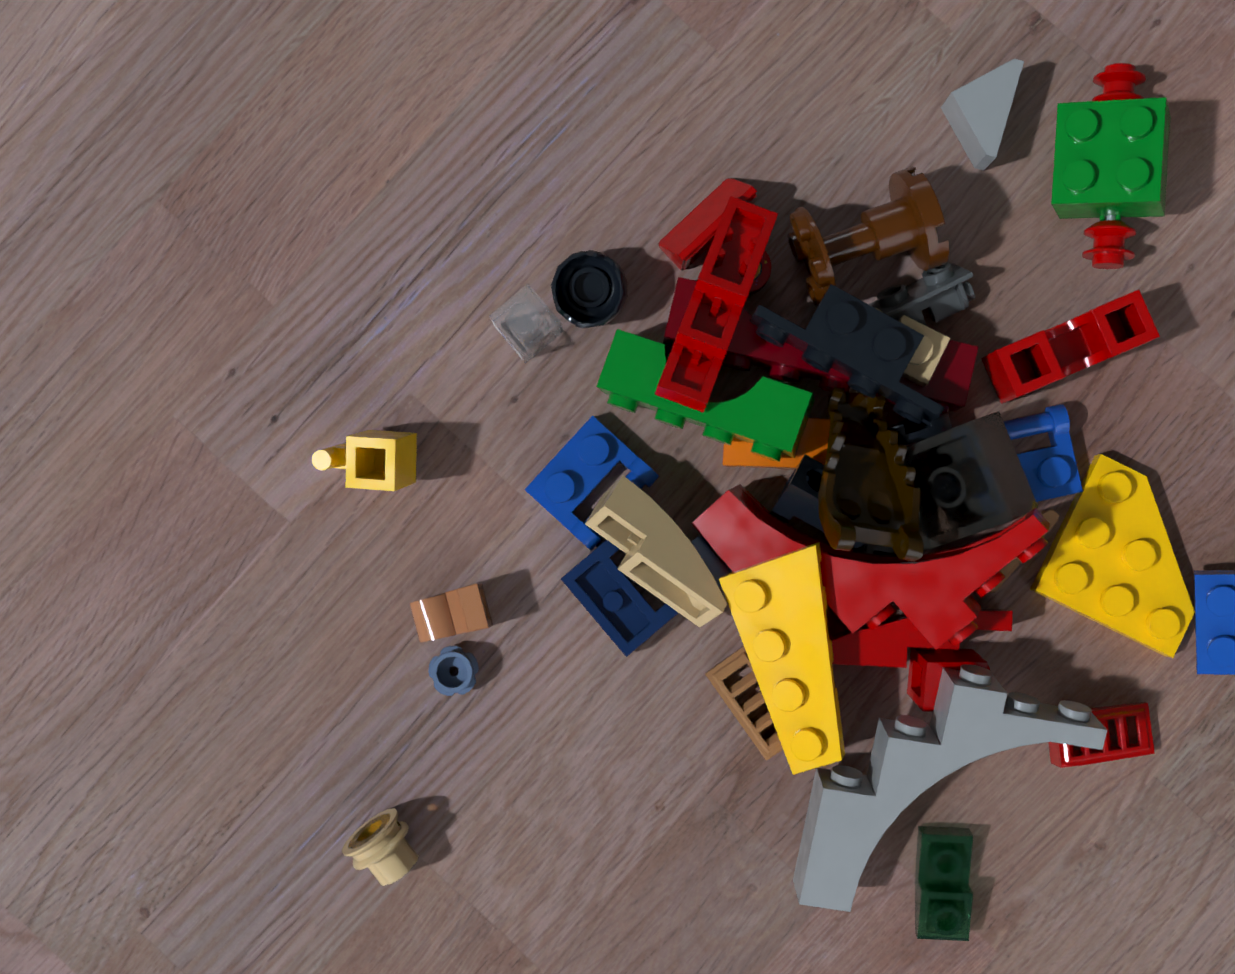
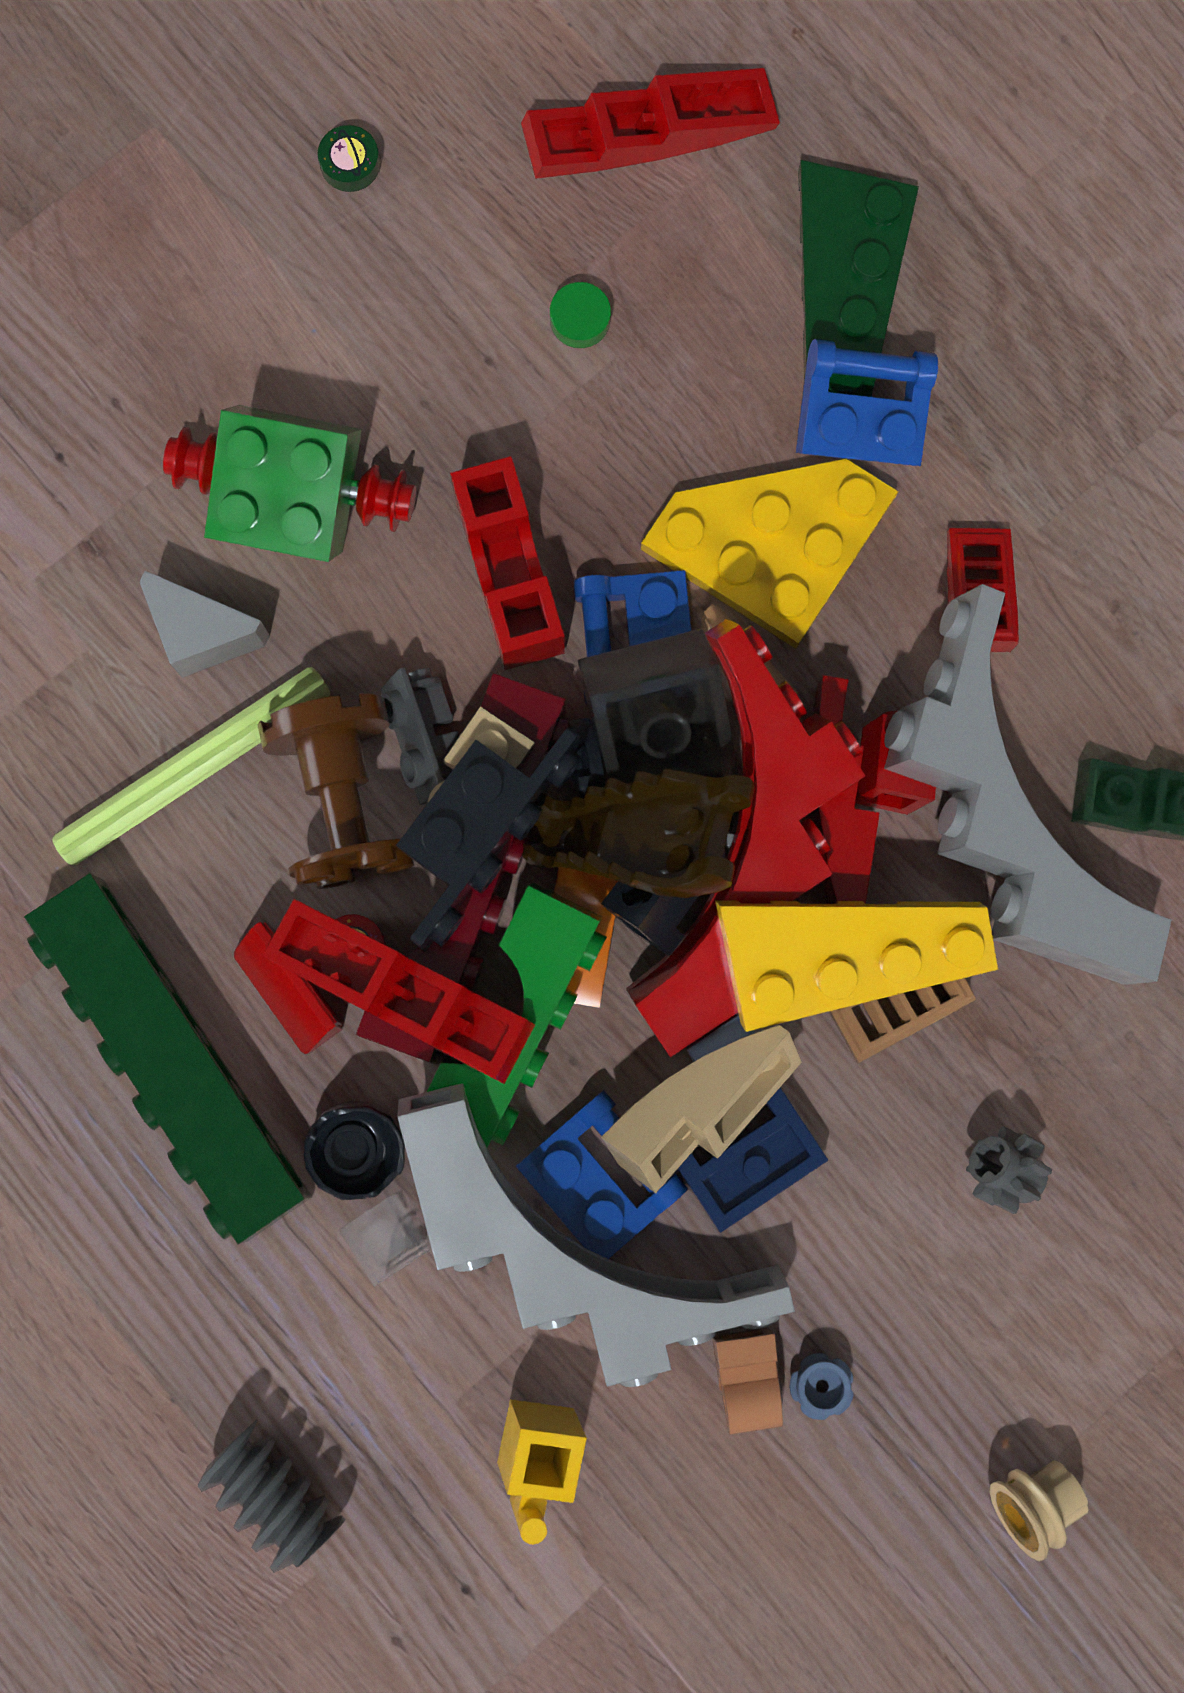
camera: 90 degrees left, 5 degrees down
(323, 260) = (269, 1500): none -> dark grey piece
(553, 387) = (632, 1313): none -> light grey arch
(635, 799) = (1008, 1169): none -> dark grey gear
(643, 136) = (167, 1059): none -> dark green brick
(864, 114) = (182, 771): none -> yellowish green axle

